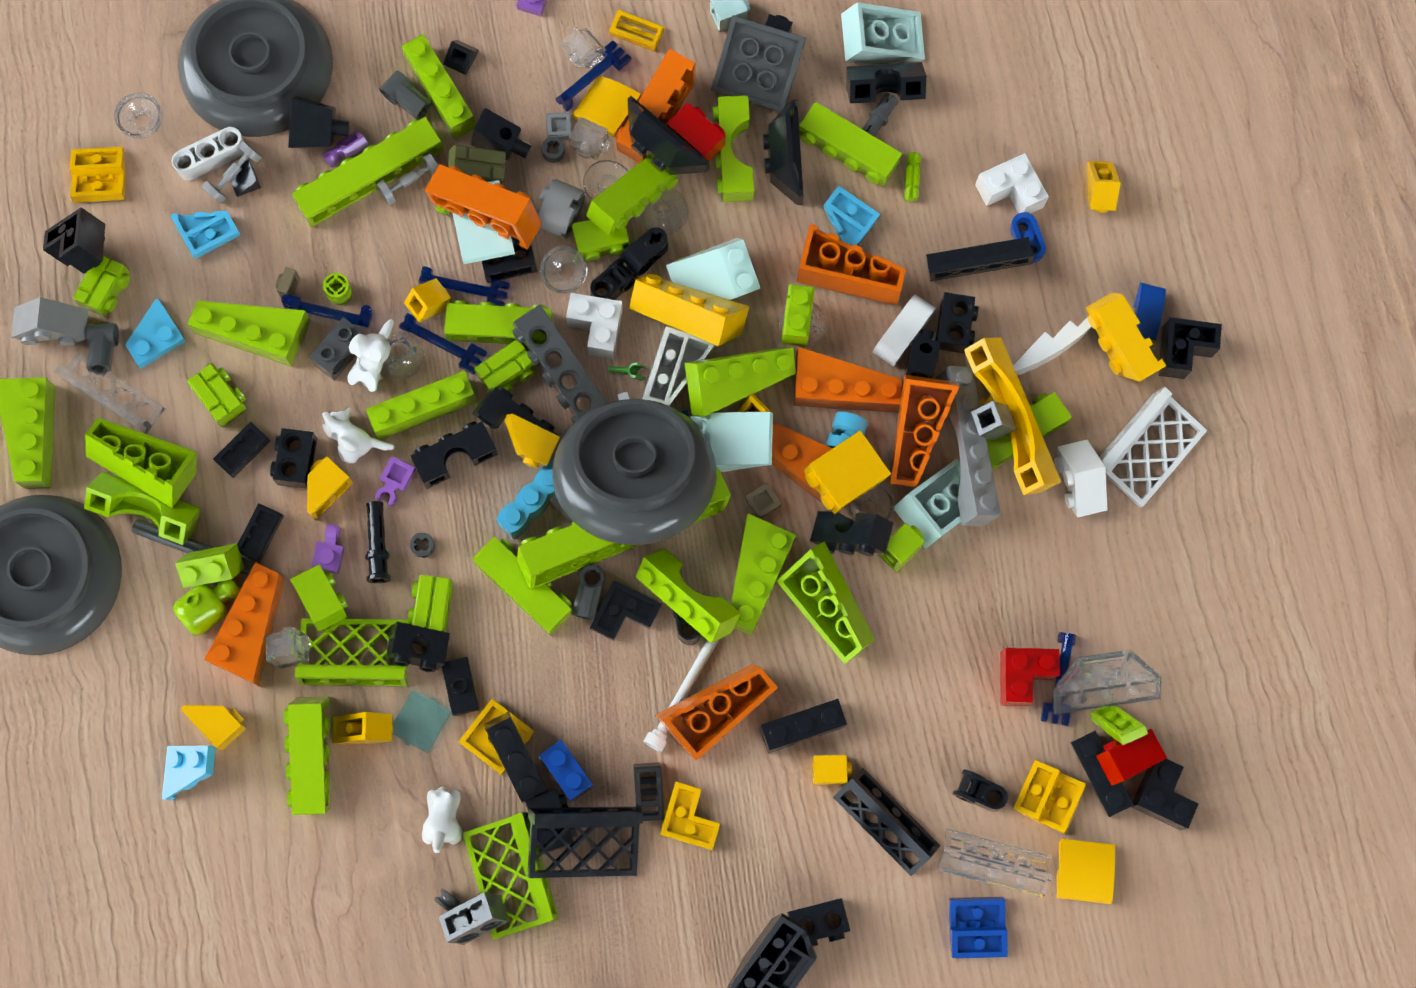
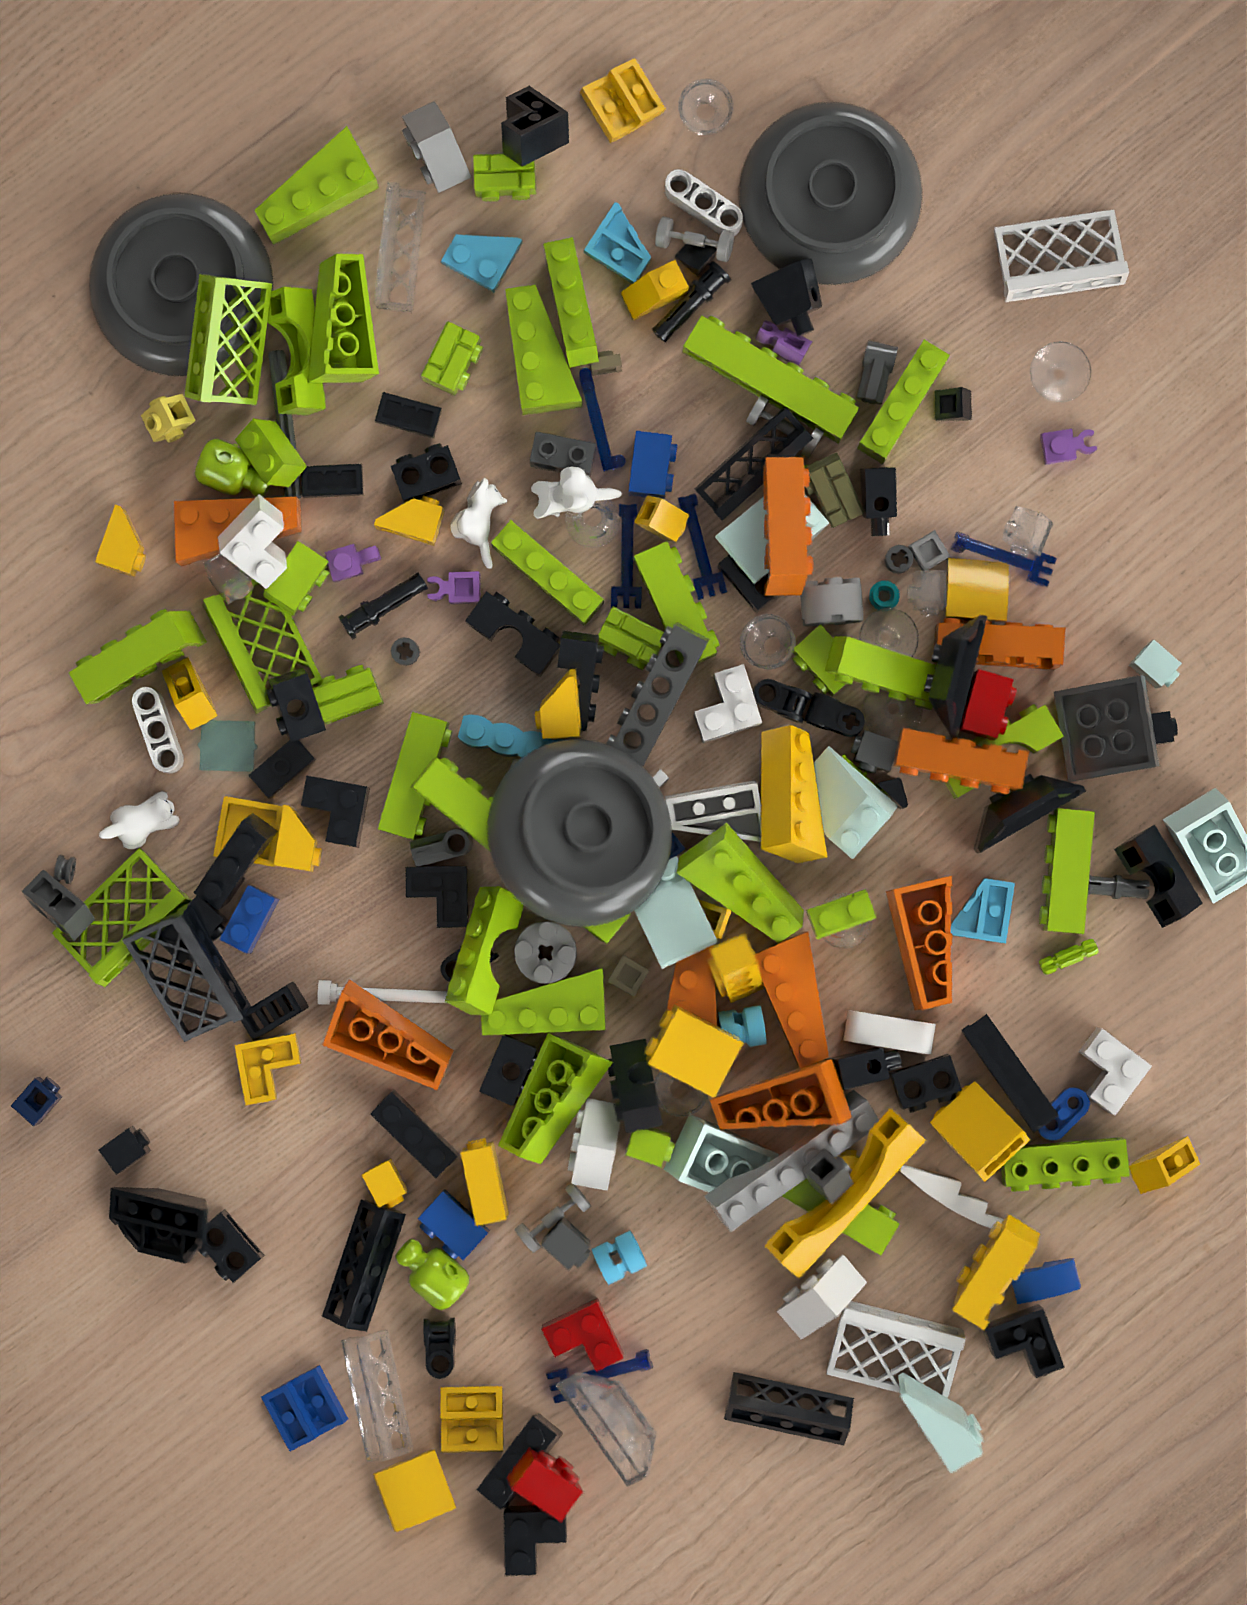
camera: 70 degrees right, 10 degrees up
(92, 563) = (208, 339): none -> lime fence
(101, 343) = (447, 209): dark grey piece -> none
(136, 633) = (168, 418): none -> light yellow brick
(186, 767) = (63, 542): wing -> none
(226, 281) = (571, 302): none -> lime brick
(253, 219) = (655, 290): none -> yellow slope
(269, 613) = (250, 545): none -> white brick
(274, 189) = (700, 292): none -> black pin
(339, 294) = (626, 423): lime wheel -> none
(365, 763) = (147, 719): none -> white beam
(382, 288) = (651, 465): none -> blue brick
(434, 214) = (753, 478): none -> black fence
(515, 649) = (344, 801): none -> black brick
(526, 704) = (296, 843): none -> yellow slope
(571, 167) = (884, 586): none -> teal plate
(614, 31) = (1083, 602): yellow tile -> none
(632, 370) = (697, 768): bright green hand -> none
(688, 235) = (874, 752): none -> dark grey brick
(698, 966) = (125, 1149): none -> black brick
(717, 538) = (528, 950): none -> light grey brick
(725, 234) = (895, 791): none -> black slope
(728, 170) = (960, 760): none -> orange wedge
(792, 643) = (495, 1082): none -> black brick
(800, 406) = (735, 969): none -> yellow brick
(868, 688) = (484, 1182): none -> yellow brick
(881, 588) = (594, 1145): none -> white brick
(889, 732) = (452, 1225): none -> blue brick
(920, 647) = (552, 1217): none -> light grey wheel
(921, 767) = (433, 1274): none -> lime piece
(948, 648) = (567, 1244): none -> dark grey brick
(978, 606) = (629, 1253): none -> medium azure wheel
(1012, 299) = (979, 1130): none -> yellow brick
(1065, 253) = (1067, 1162): none -> lime brick
(1118, 724) = (573, 1457): lime tile -> none
(1161, 548) = (793, 1419): none -> black fence
(1233, 431) = (943, 1422): none -> light aqua slope

